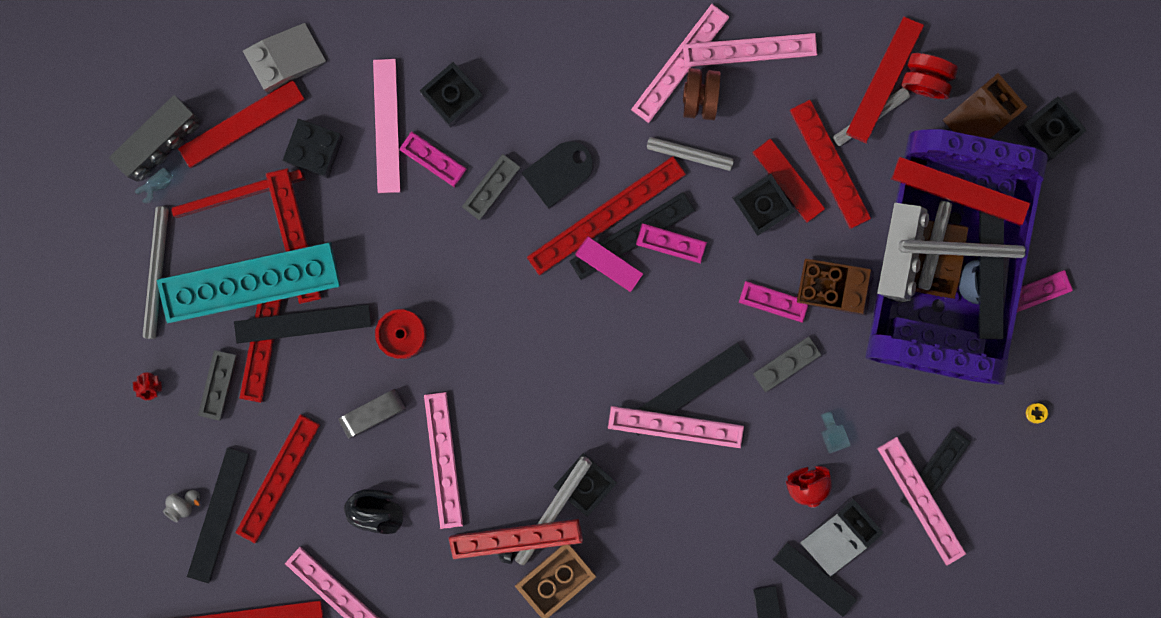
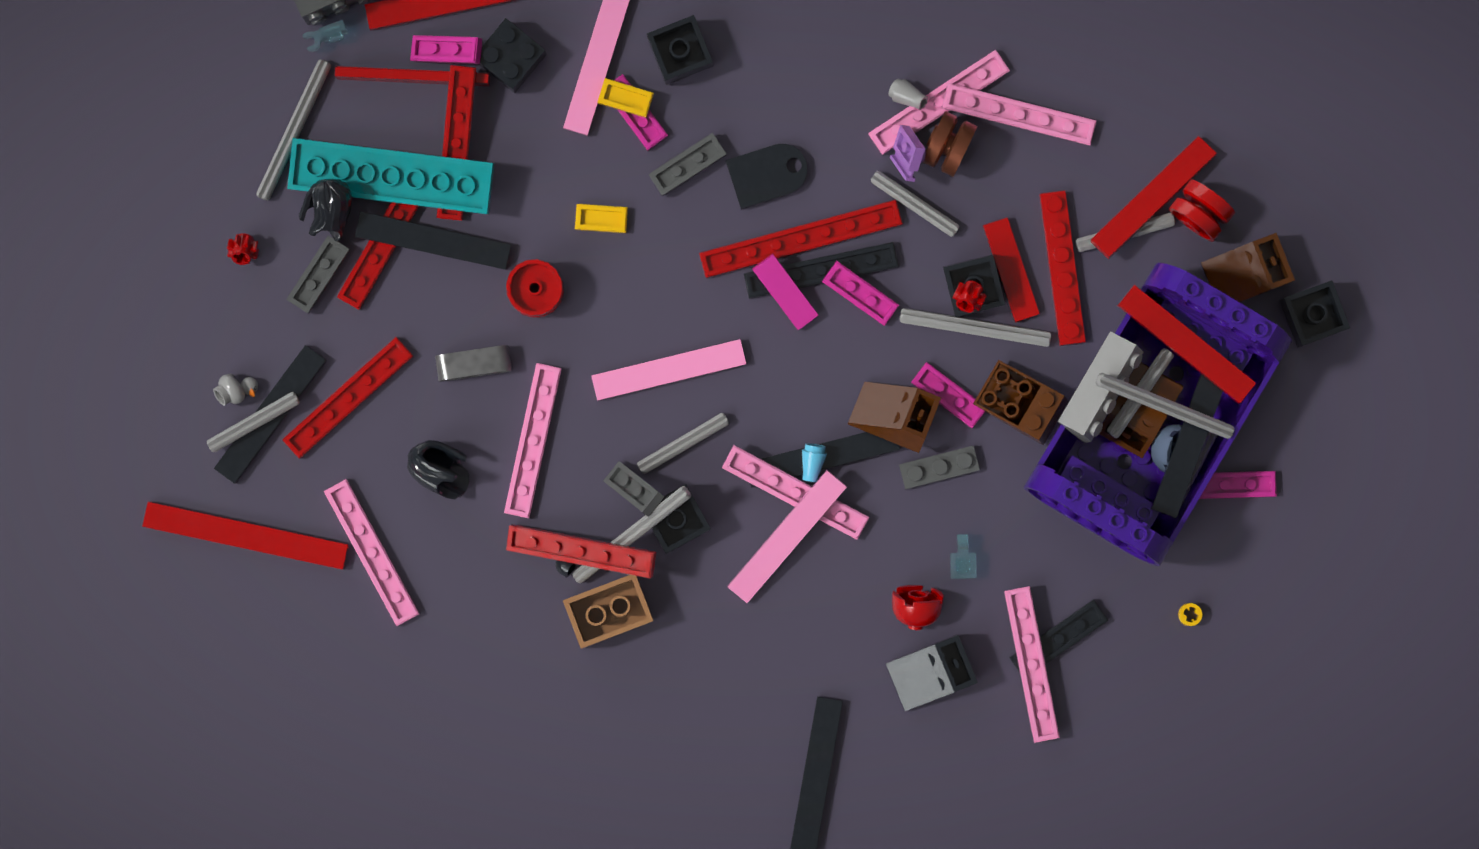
camera: 15 degrees right, 0 degrees up
(205, 527) = (253, 422): none -> light grey axle
(207, 325) = (331, 207): none -> black hair
(258, 162) = (446, 49): none -> dark pink tile
(420, 150) = (625, 98): none -> yellow tile
(435, 256) = (601, 218): none -> yellow tile
(535, 362) = (668, 370): none -> bright pink tile
(541, 472) = (633, 488): none -> dark grey plate
(568, 419) = (683, 443): none -> light grey axle
(650, 65) = (905, 93): none -> light grey cone
(670, 113) = (908, 153): none -> medium lavender plate
(681, 396) = (813, 459): none -> medium azure cone
(681, 466) = (787, 536): none -> bright pink tile
(735, 333) = (895, 413): none -> reddish brown slope
(764, 214) = (969, 296): none -> red gear
(776, 238) = (975, 327): none -> light grey axle
(814, 579) = (887, 709): black tile -> none

